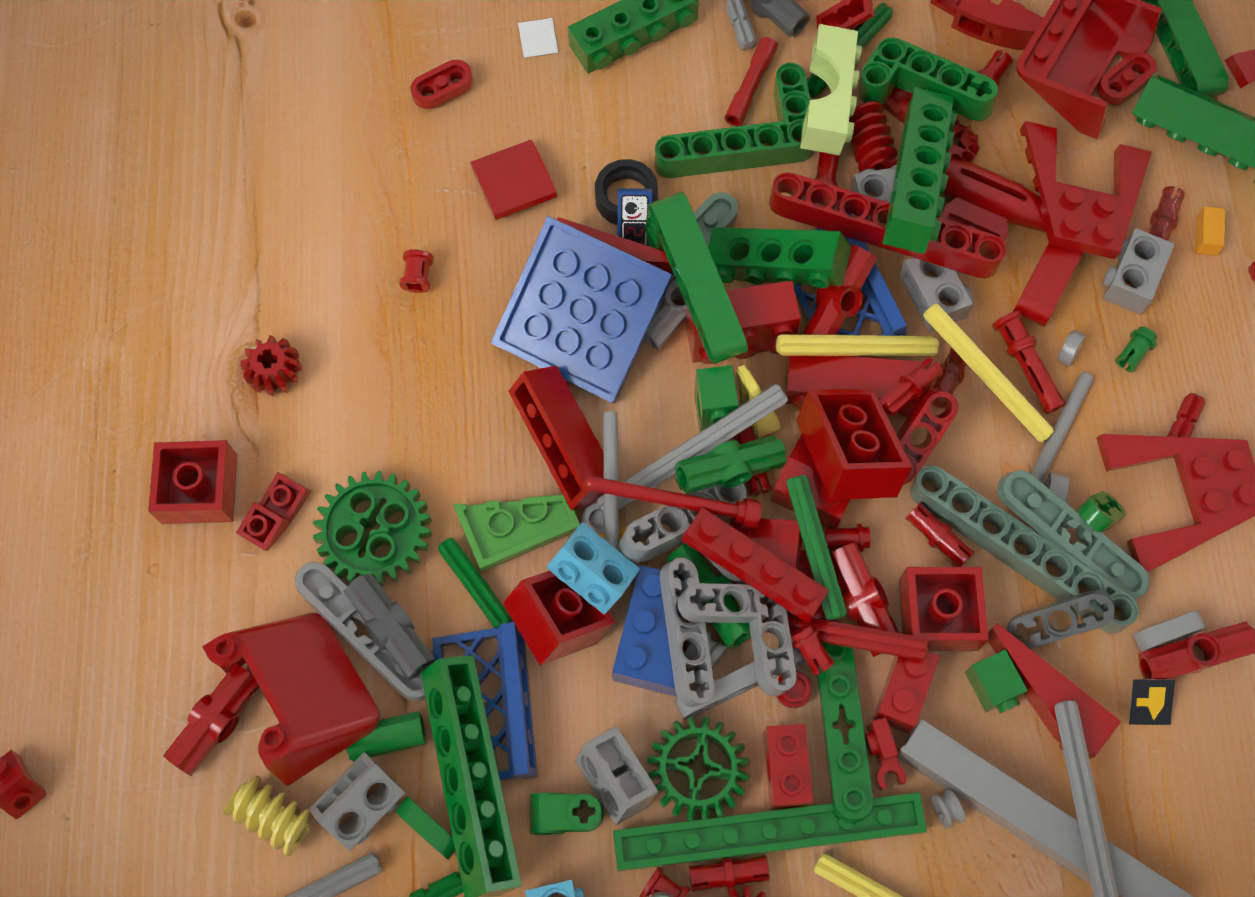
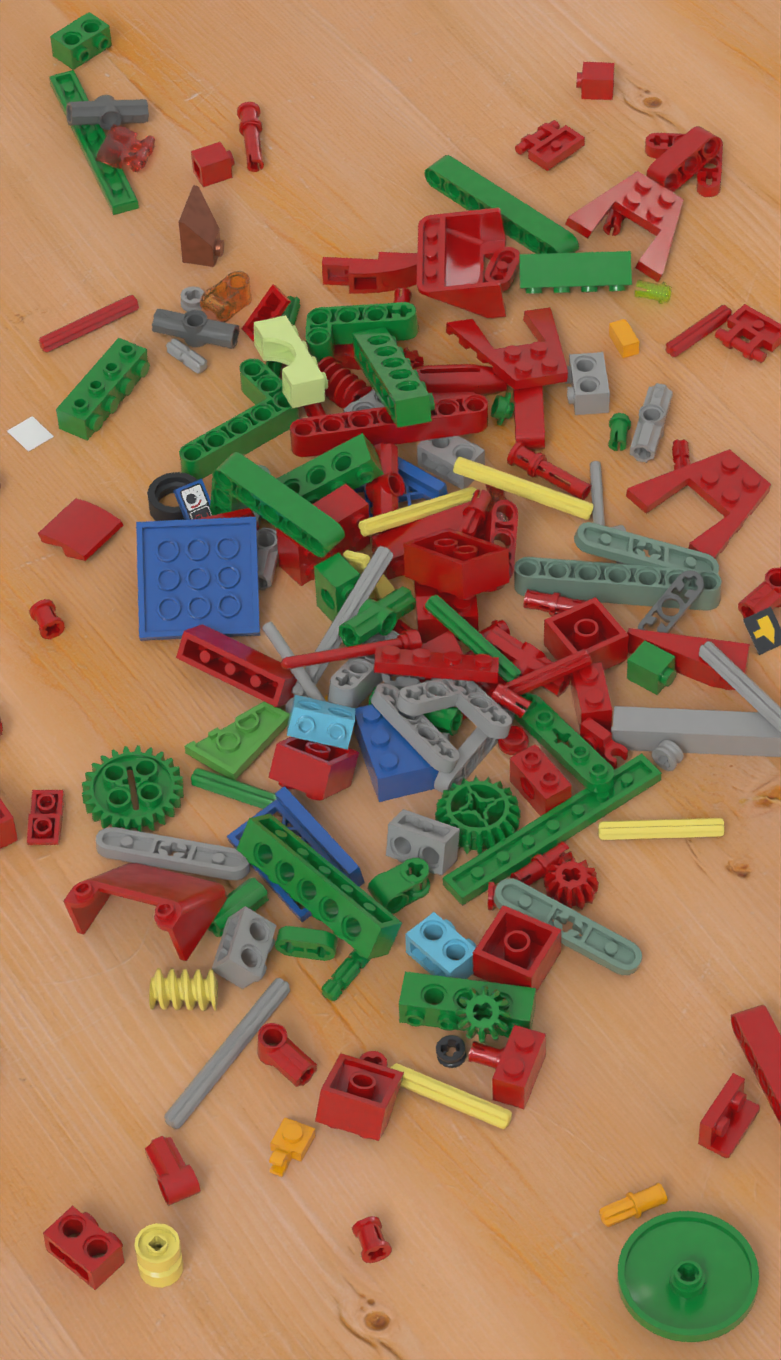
camera: 30 degrees left, 20 degrees down
(212, 720) = (96, 959): red piece -> none
(389, 626) = (192, 832): dark grey piece -> none
(744, 97) = (220, 376): red piece -> none
(1026, 254) = (502, 408): none -> green plate
(1071, 347) = (572, 450): light grey tile -> none
(1101, 511) = (657, 532): green beam -> none
(1165, 217) = (586, 341): clear red pin -> none
(1166, 369) = (651, 422): none -> light grey piece
(1169, 631) = (747, 582): light grey beam -> none

